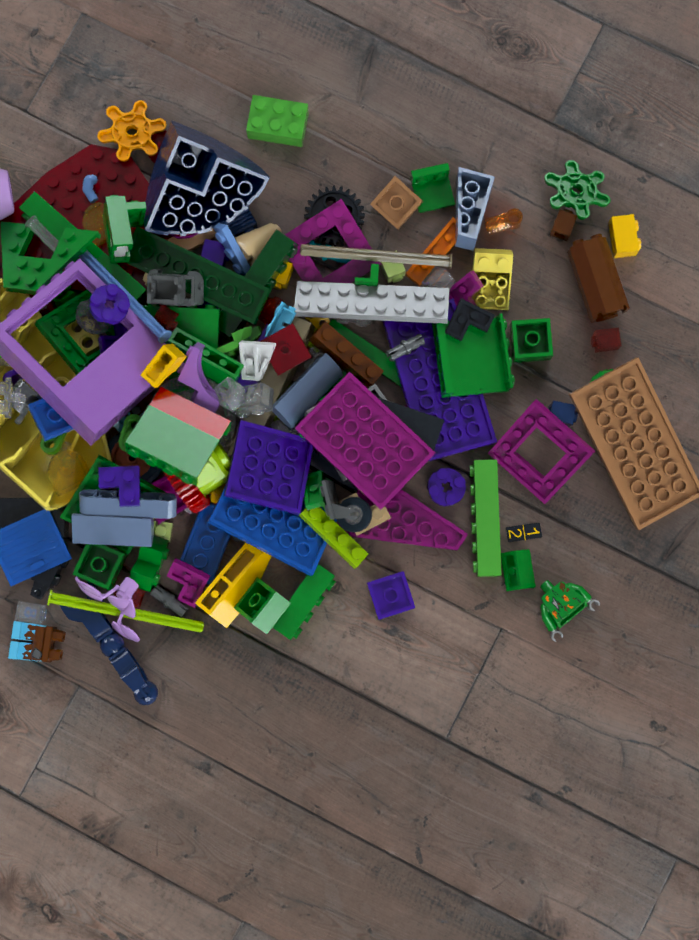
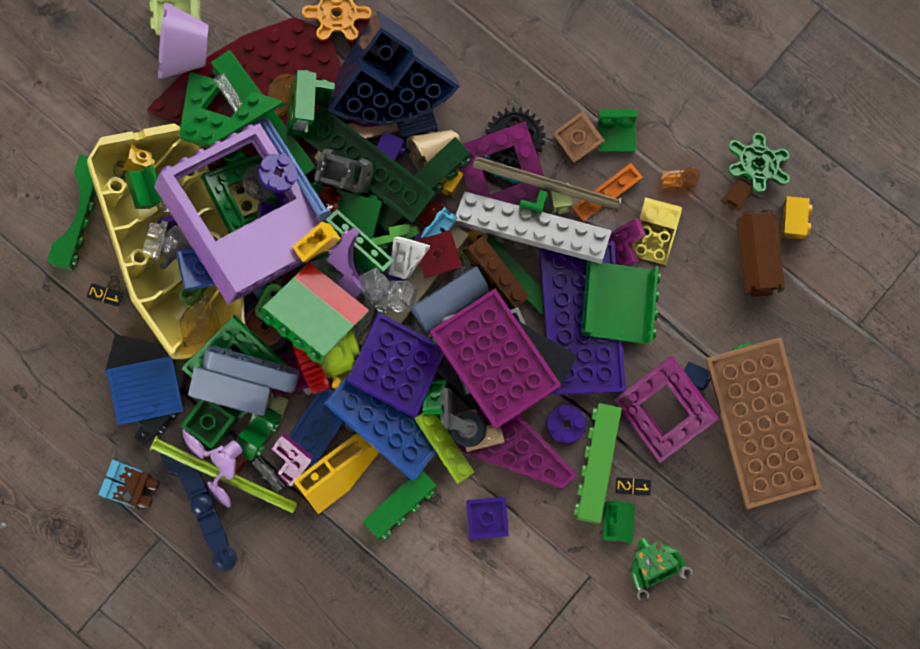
camera: 10 degrees right, 5 degrees down
(30, 612) = (130, 455): clear brick -> none
(87, 188) = (281, 57): medium blue arm -> none
(126, 479) = (255, 345): dark purple plate -> none
(232, 249) = (407, 146): medium blue plate -> none
(262, 605) = (358, 498): green brick -> none
(277, 121) = (480, 33): bright green brick -> none
(405, 347) = (555, 278): dark grey pin -> none
(466, 315) = (622, 260): black tile -> none
(471, 203) = (652, 152): sand blue wedge -> none
(531, 340) = (681, 299): green brick -> none
(606, 340) = (755, 315): clear red brick -> none

